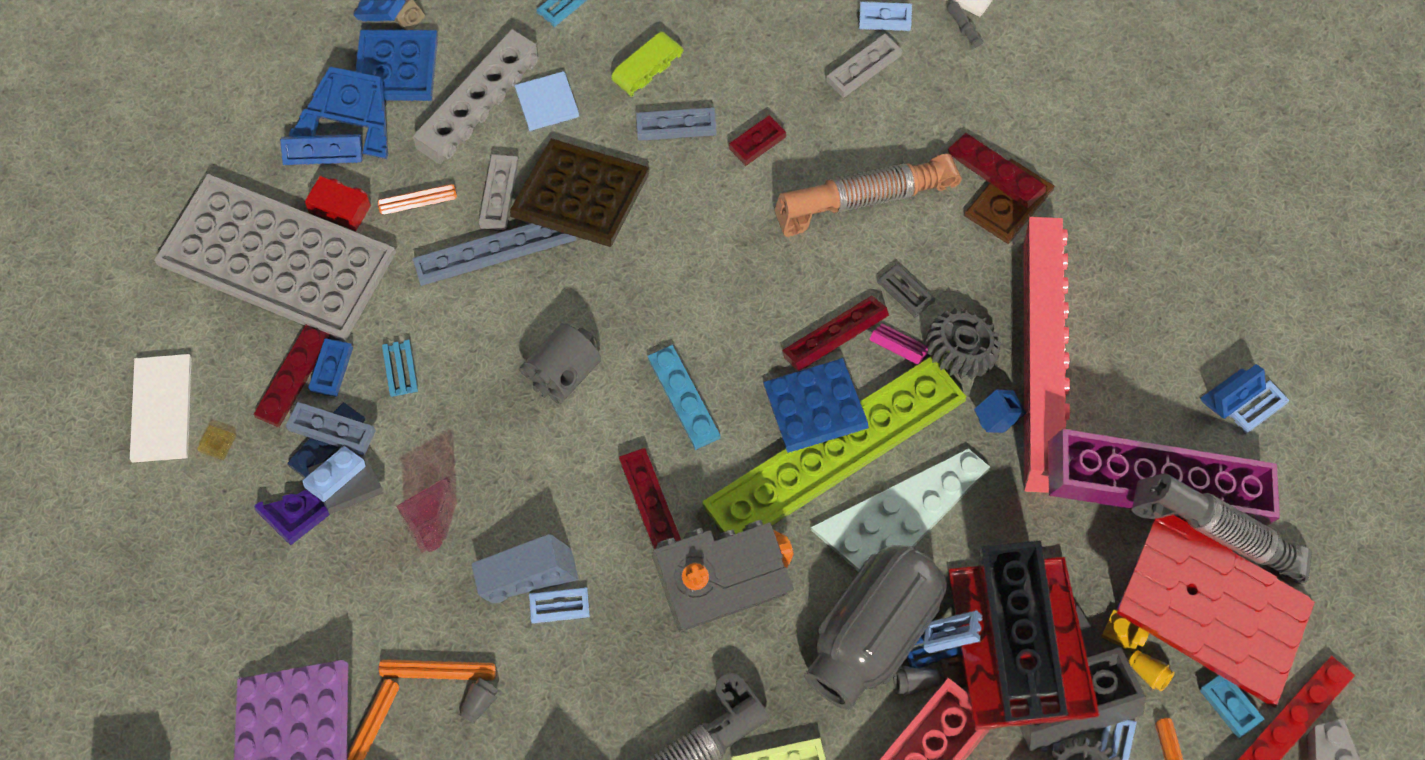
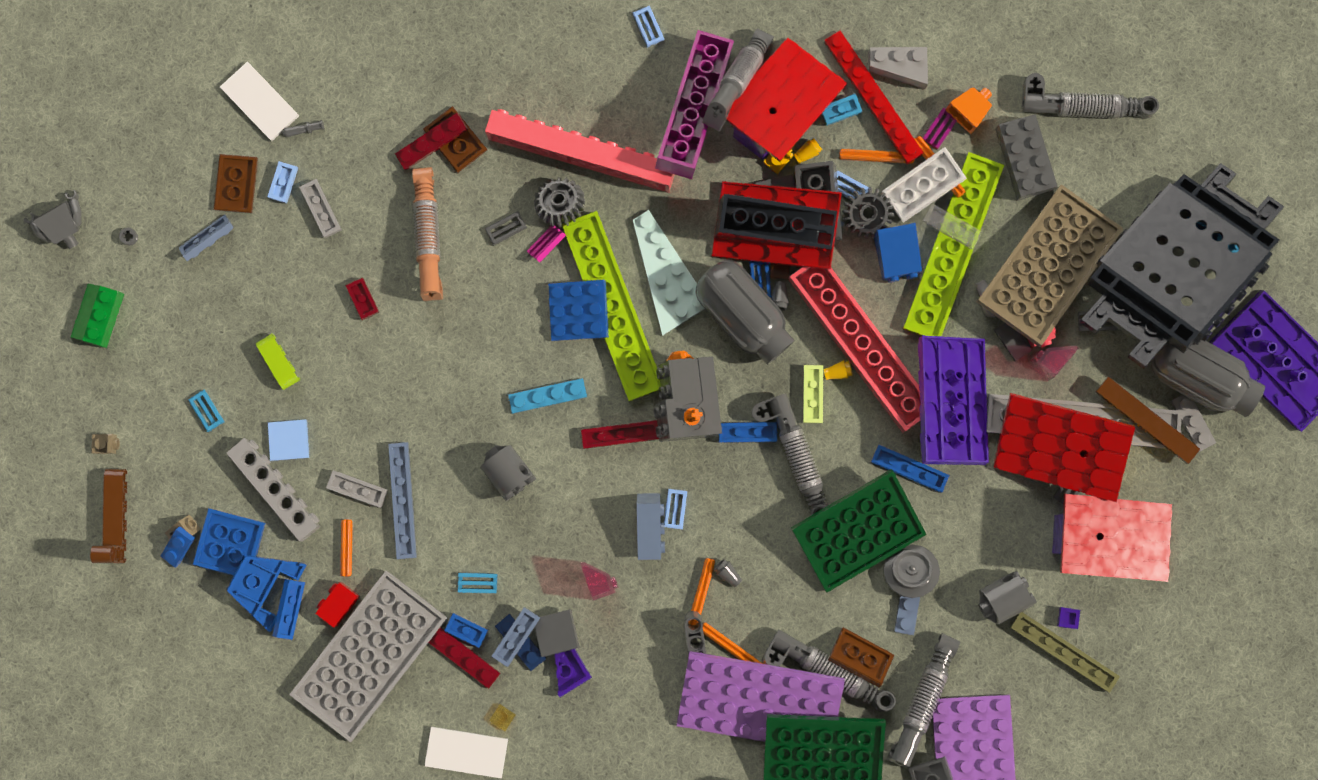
camera: 75 degrees left, 20 degrees up
(333, 473) = (552, 639): light blue plate -> none
(379, 668) = (694, 631): none -> dark grey beam
(580, 192) = (375, 431): dark brown plate -> none
(676, 124) = (333, 352): sand blue plate -> none
(696, 680) = (748, 432): none -> blue plate
(835, 333) = (527, 283): dark red plate -> none
(952, 636) = (756, 249): light blue tile -> none
(999, 411) = (614, 192): blue brick -> none
(1235, 391) = (635, 38): blue panel -> none

